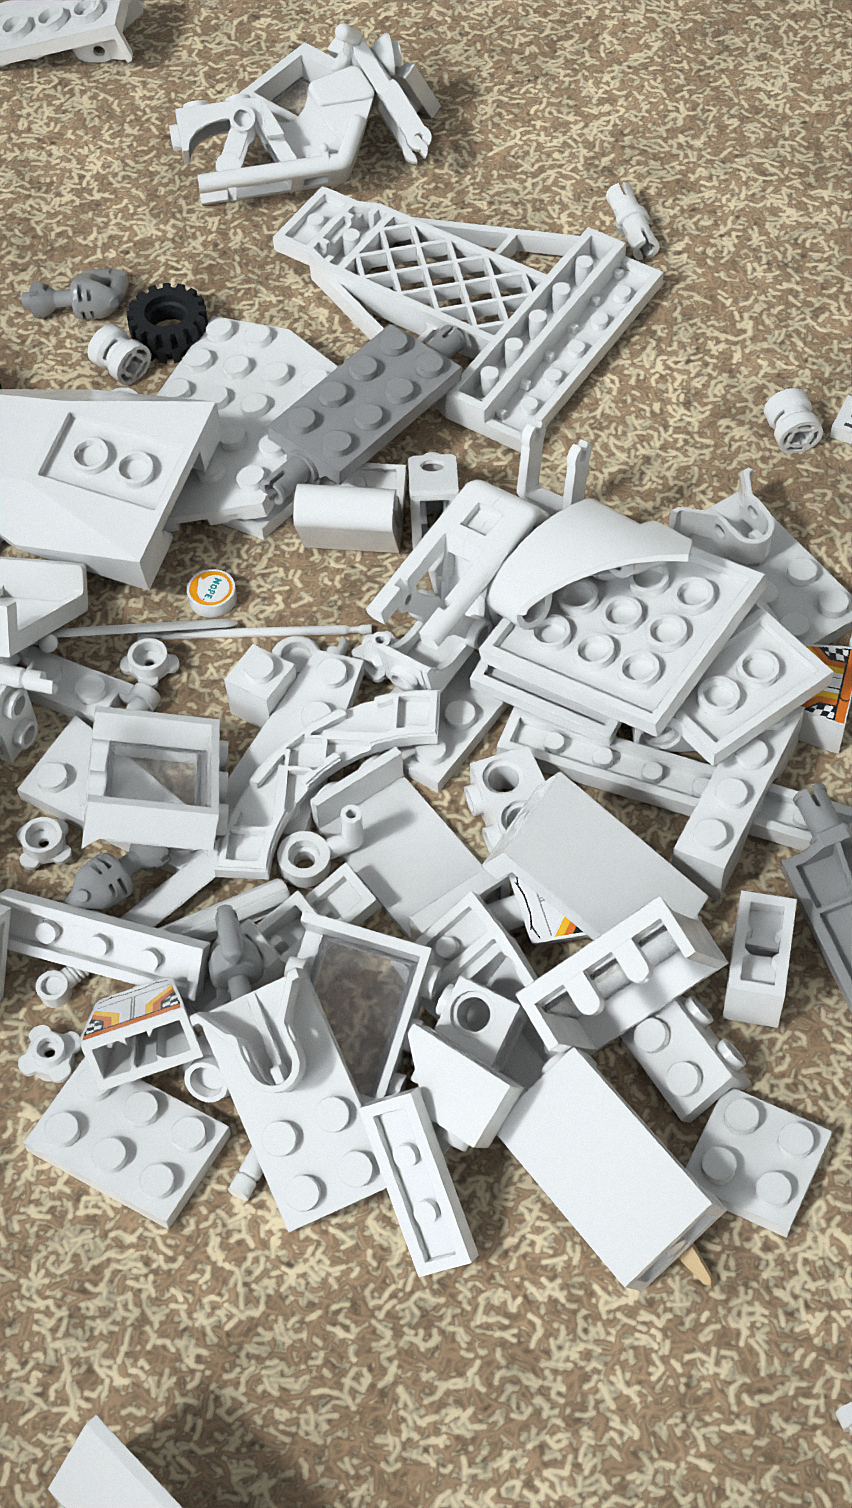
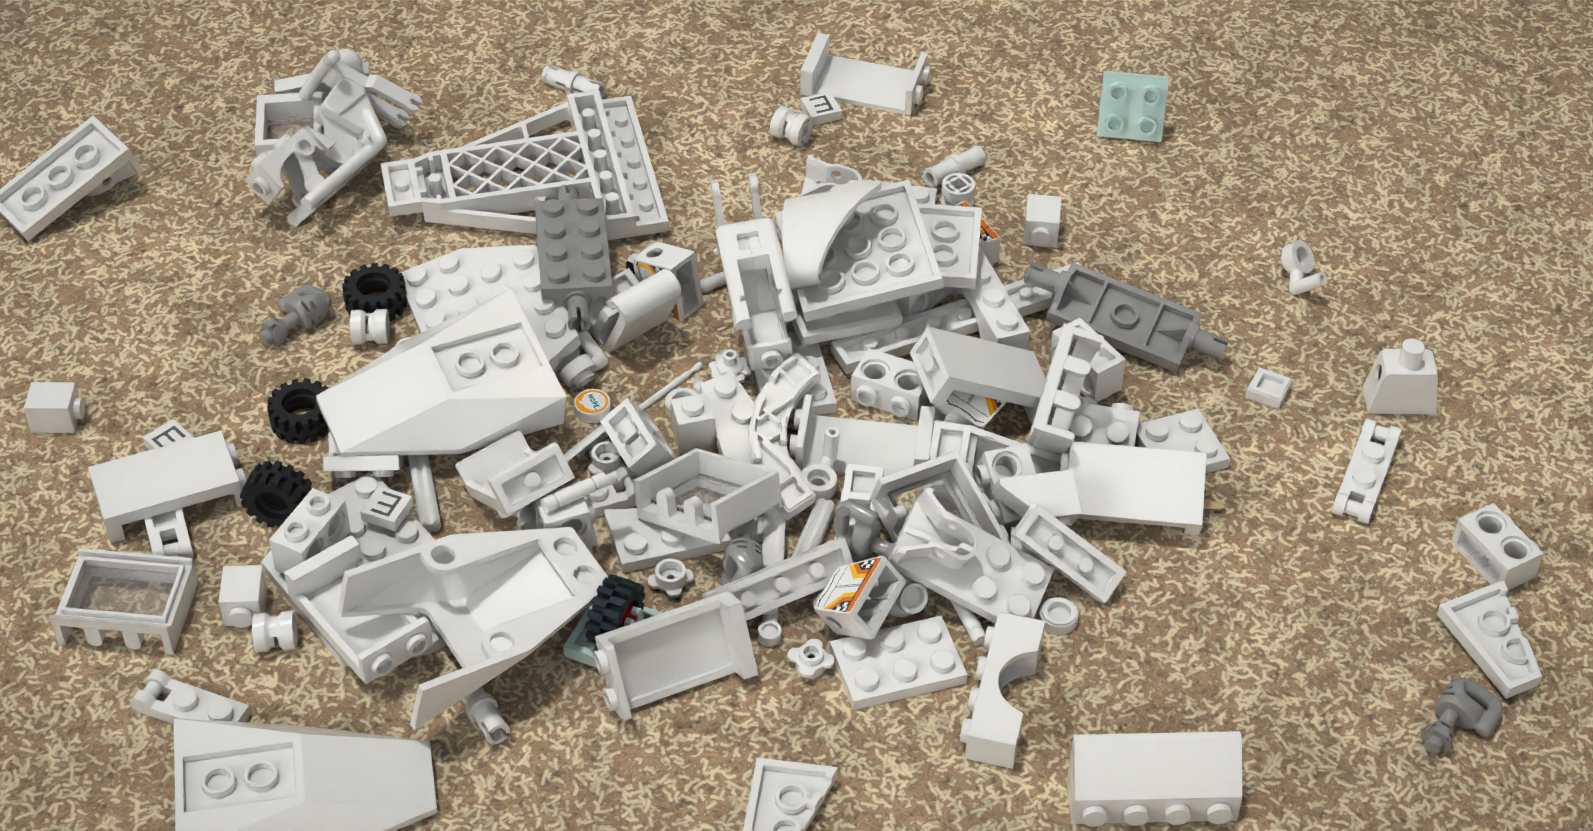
camera: 50 degrees left, 10 degrees down
(106, 1306) = (995, 725): none -> white arch
(182, 665) = (637, 438): none -> white brick
(239, 544) = (581, 369): none -> white plate
(353, 1243) = (1059, 615): none -> white tile

